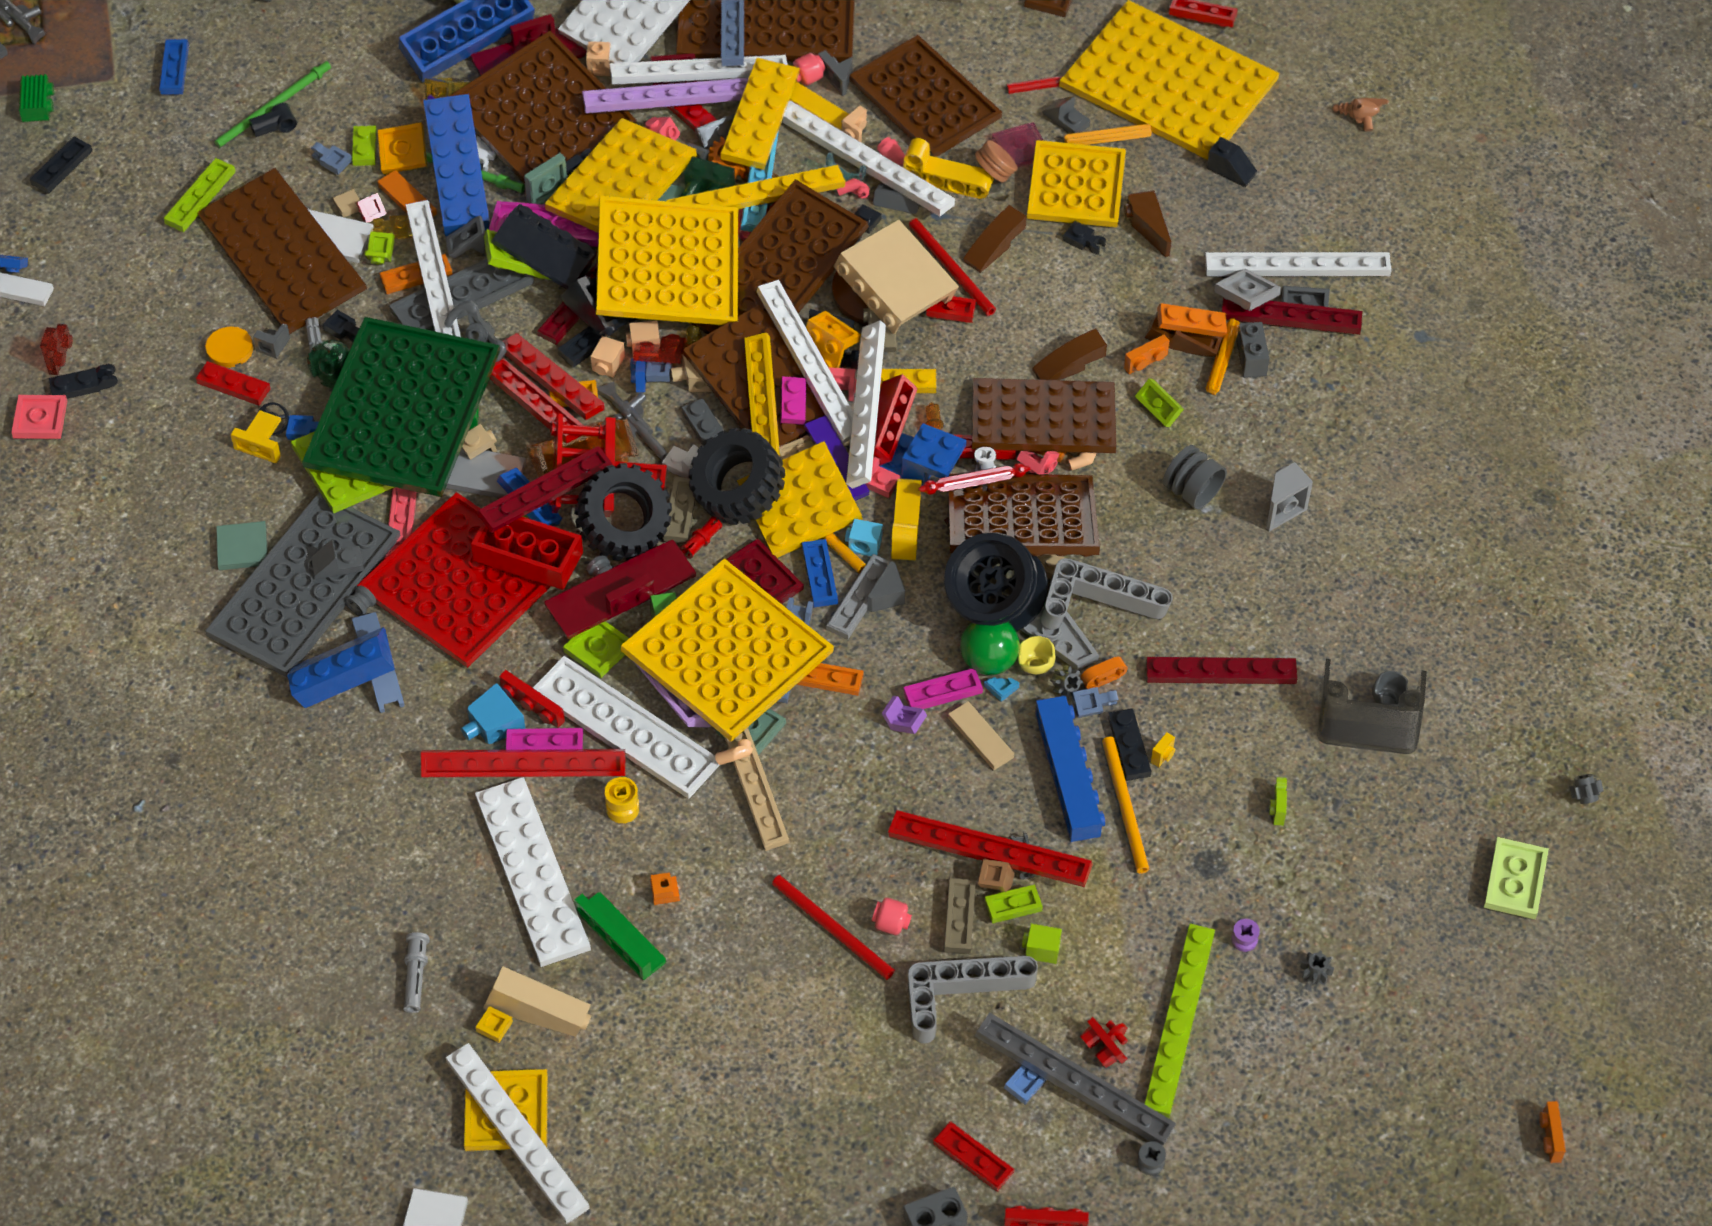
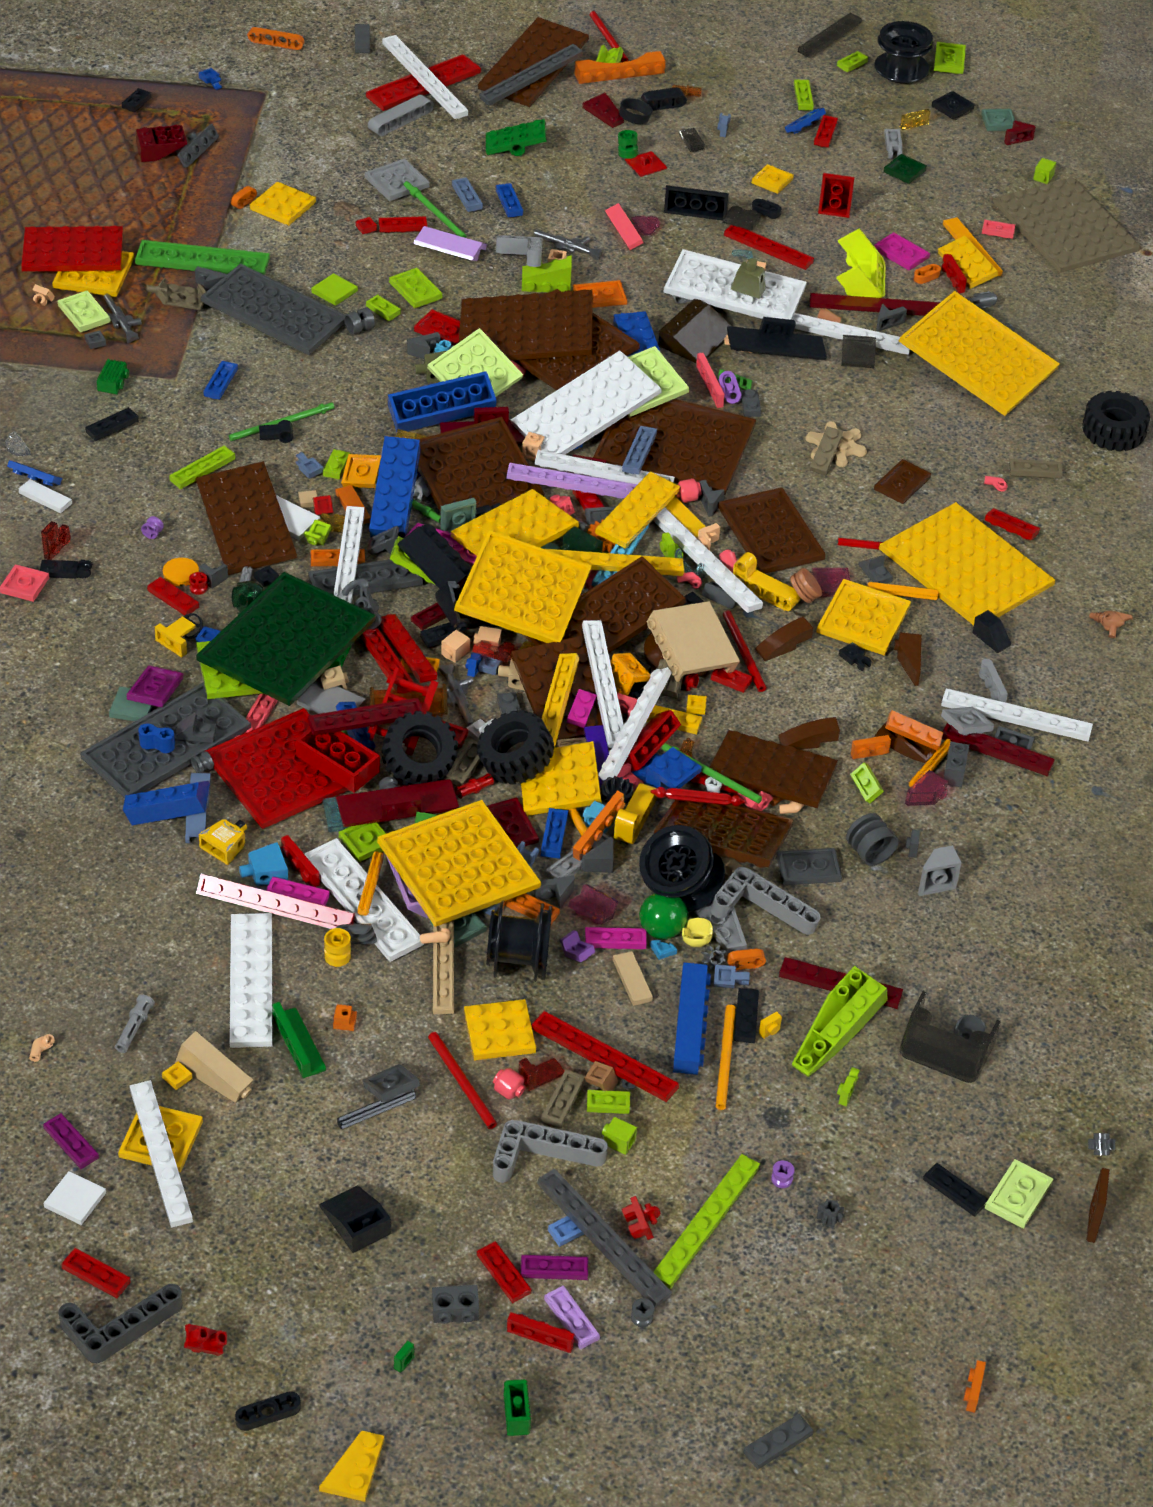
camera: 15 degrees right, 10 degrees down
(170, 296) = (152, 527): none -> medium lavender wheel
(258, 357) = (198, 583): none -> red wheel
(261, 513) = (155, 686): none -> magenta tile
(293, 586) = (156, 738): none -> blue axle
(312, 1034) = (40, 1045): none -> light nougat arm
(399, 1147) = (71, 1141): none -> magenta tile
(428, 697) = (223, 840): none -> yellow torso
(545, 624) = (332, 815): none -> clear light blue plate
(629, 705) = (370, 883): none -> light orange axle
(643, 774) = (360, 933): none -> dark grey arm
(746, 993) = (373, 1109): none -> axle
(753, 957) = (391, 1083): none -> dark grey plate
(779, 1141) = (357, 1218): none -> black slope
(814, 153) = (668, 546): none -> lime bracket
(842, 732) = (519, 940): none -> black wheel
(851, 644) = (556, 887): none -> dark grey slope
(851, 848) = (499, 1029): none -> yellow plate
(875, 497) = (613, 784): none -> black gear
(878, 542) = (595, 830): none -> orange plate
(902, 654) = (594, 905): none -> clear pink bracket
(907, 328) = (691, 681): none -> red plate
(921, 891) = (541, 1074): none -> clear red bracket
(923, 354) = (696, 704): none -> yellow plate
(988, 446) = (721, 778): none -> bright green bar
(1029, 1132) = (554, 1267): none -> magenta tile
(1072, 1188) = (572, 1317): none -> lavender tile
(1132, 530) = (809, 866): none -> dark grey tile
(1232, 392) = (927, 790): none -> clear pink slope
(1239, 720) = (840, 1019): none -> lime wedge
(1240, 466) = (912, 843): none -> dark grey plate
(1256, 228) = (992, 681): none -> light grey plate
(1443, 893) = (955, 1189): none -> black tile
(1614, 870) = (1097, 1205): none -> reddish brown tile

